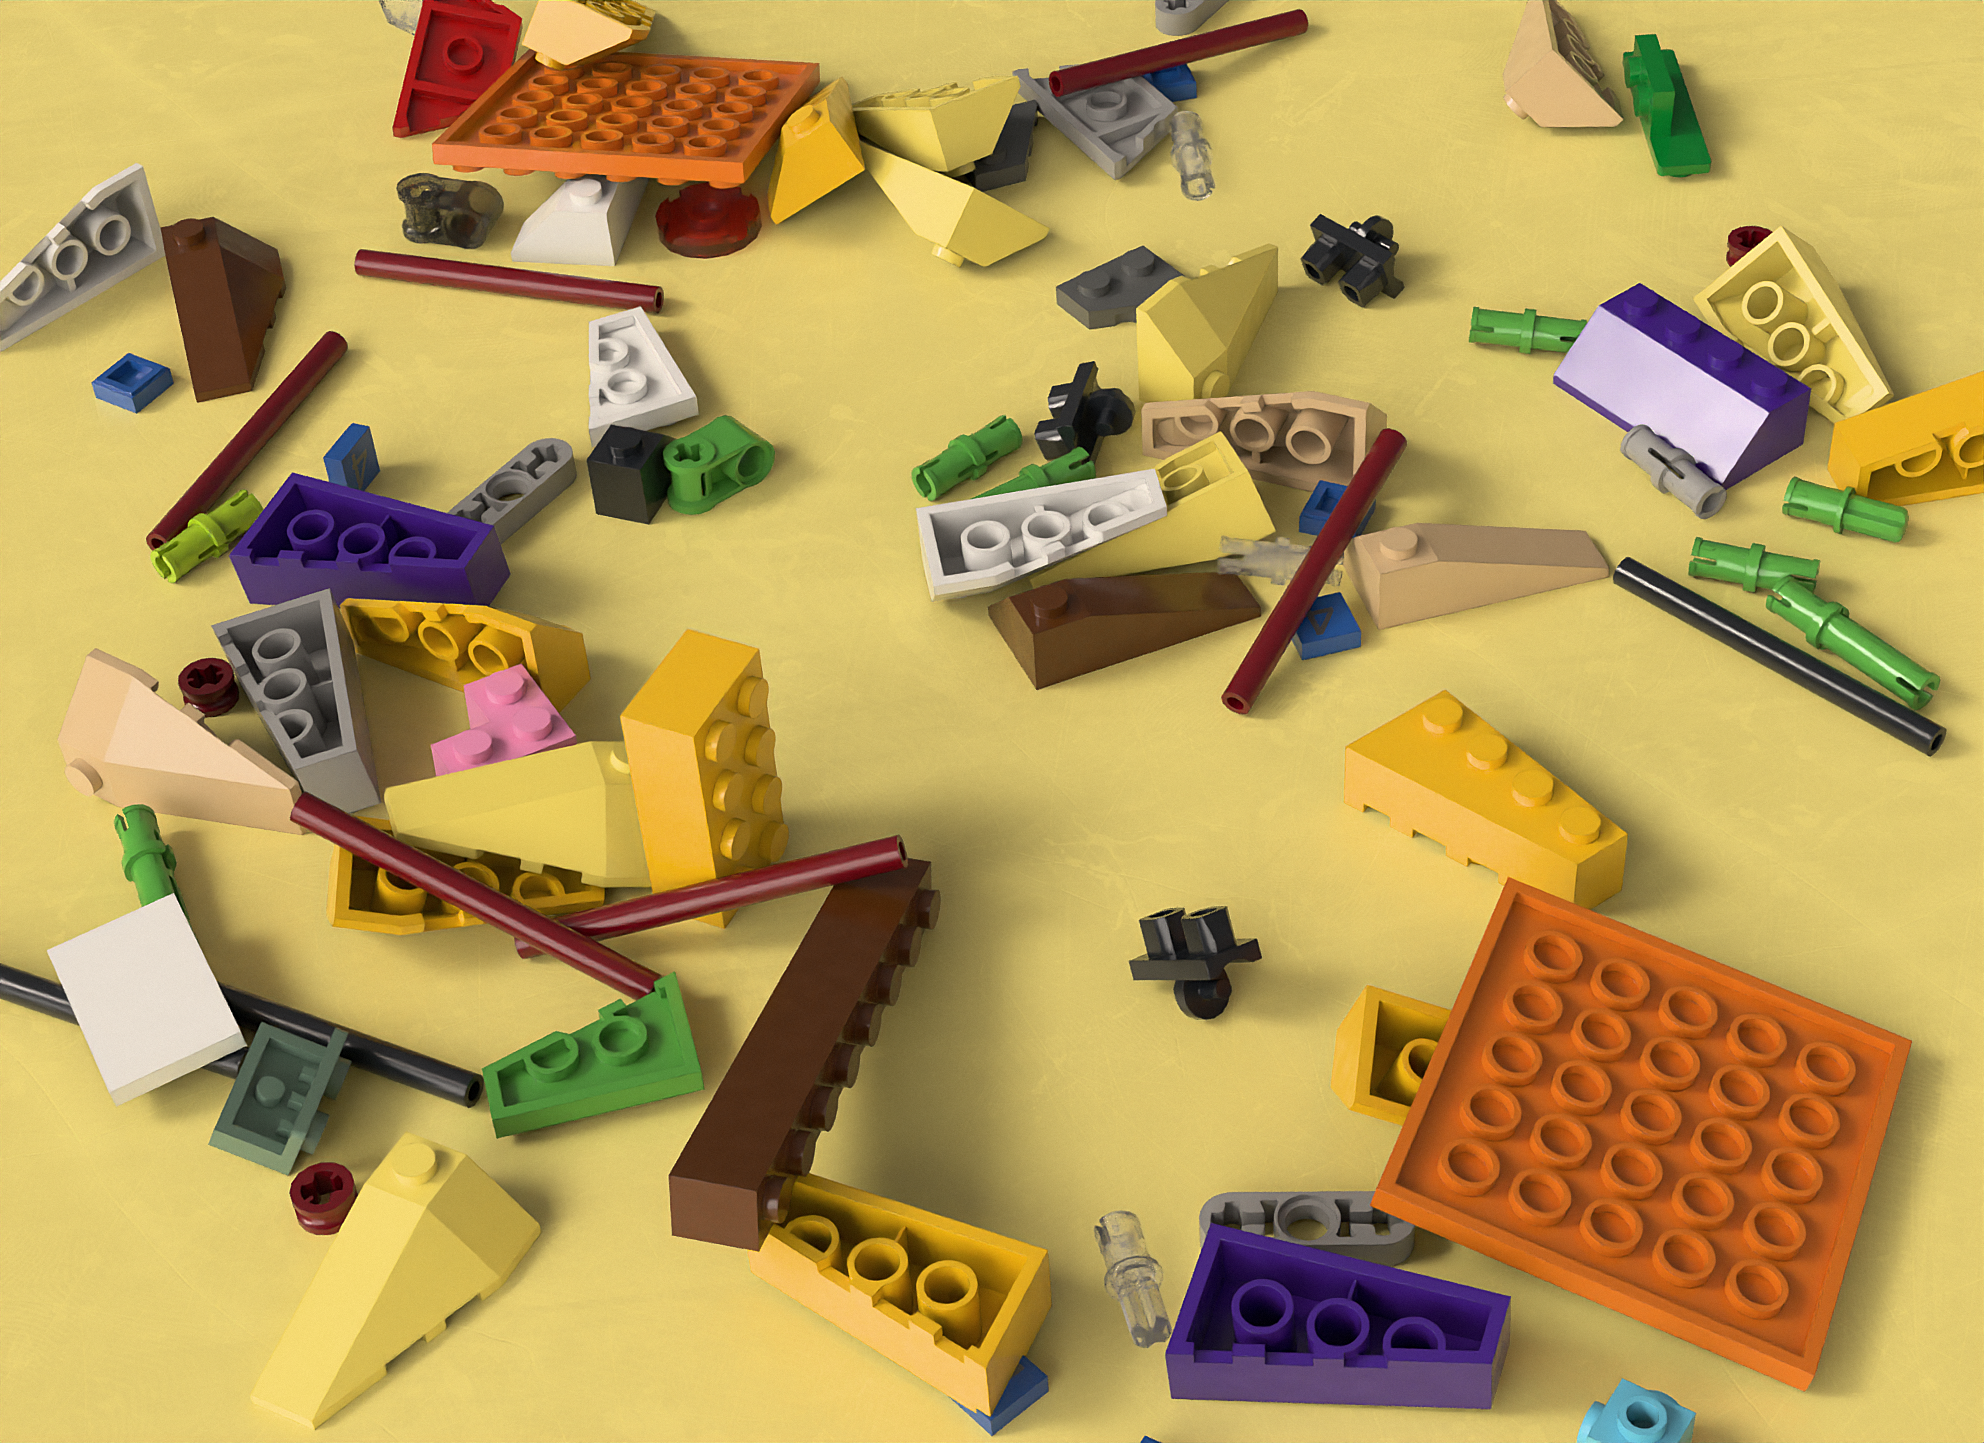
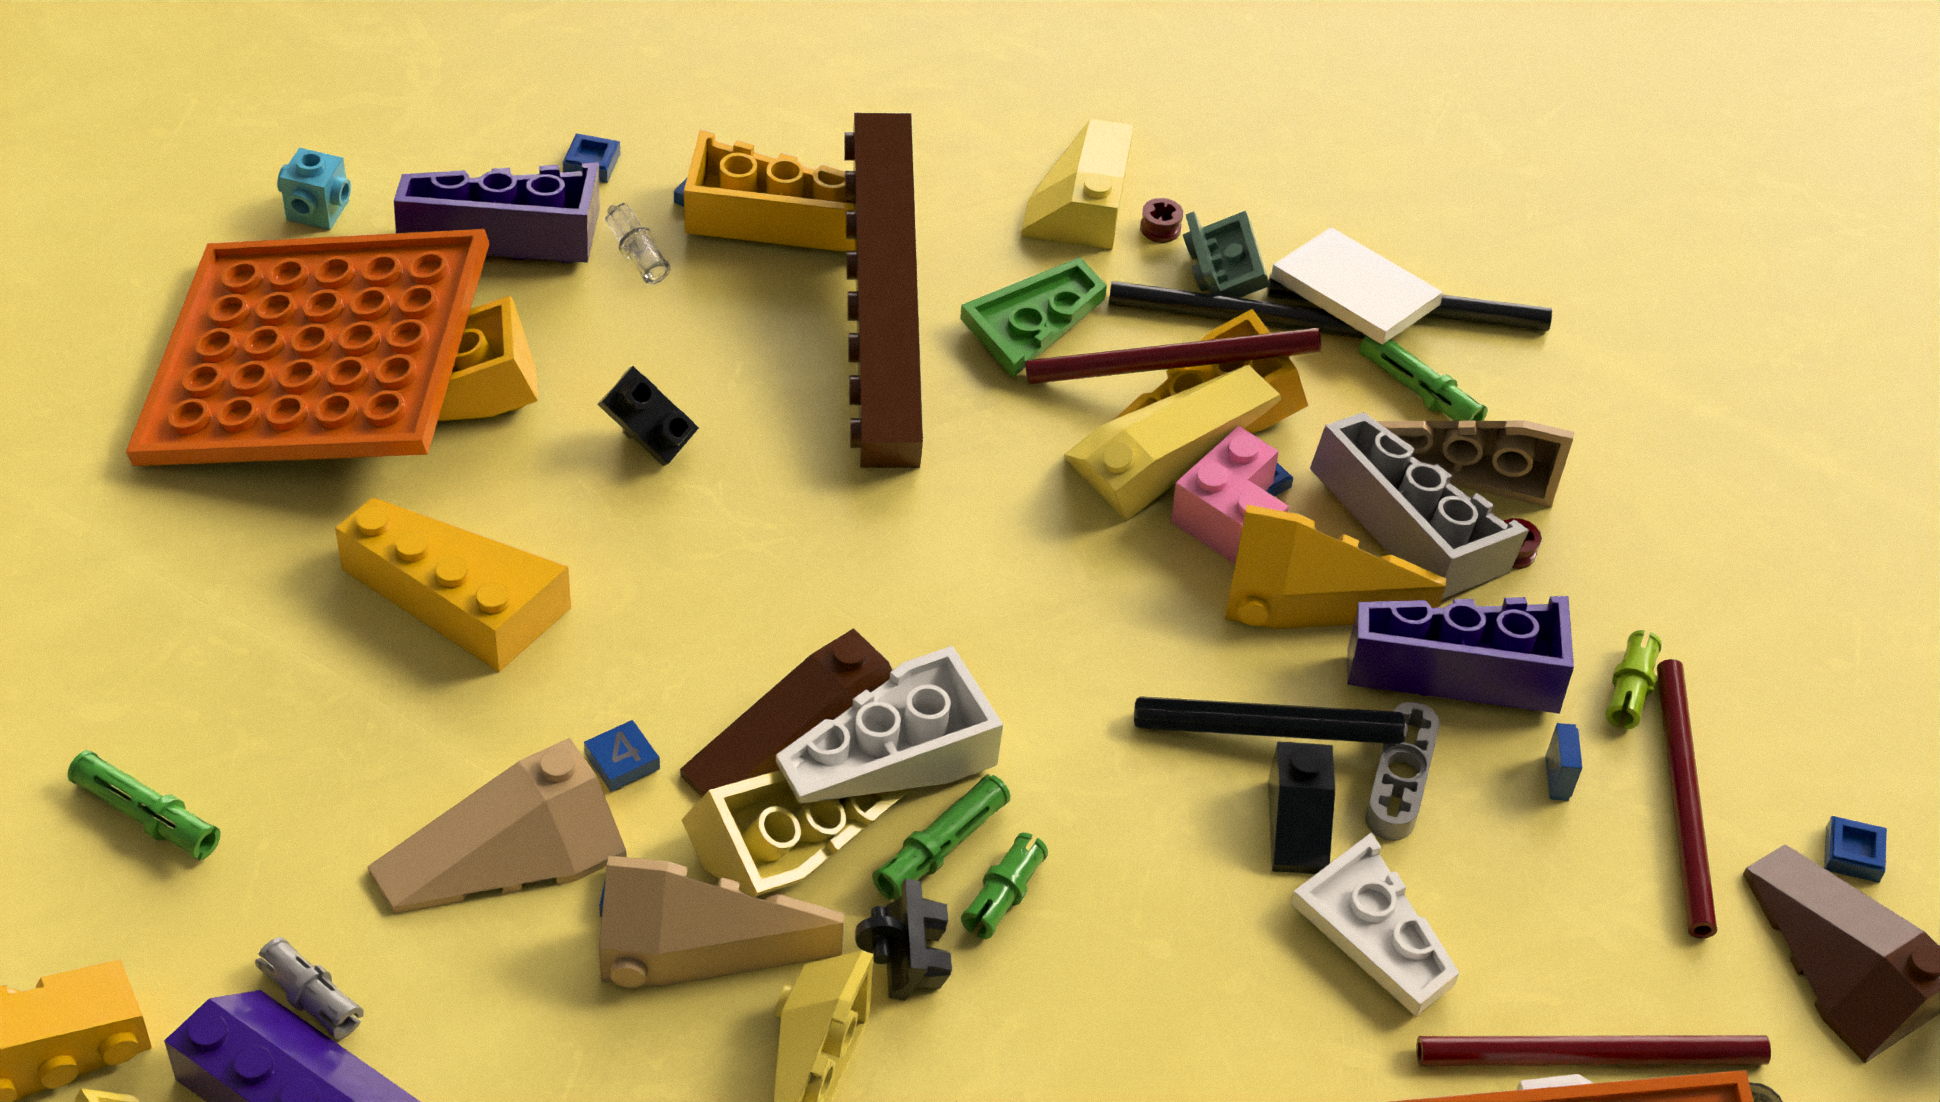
camera: 155 degrees right, 5 degrees up
(623, 538) = (1269, 720): none -> black axle
(705, 766) = (1034, 402): yellow brick -> none
(717, 459) = (1234, 820): bright green piece -> none
(734, 891) = (1005, 392): dark red piece -> none
(1267, 559) = (632, 808): clear pin -> none
(1313, 572) = (629, 773): dark red piece -> none
(1327, 1207) = (549, 279): light grey beam -> none
(1750, 566) = (191, 878): bright green pin -> none
(1781, 657) = (216, 793): black piece -> none
(1845, 510) = (143, 963): bright green axle -> none

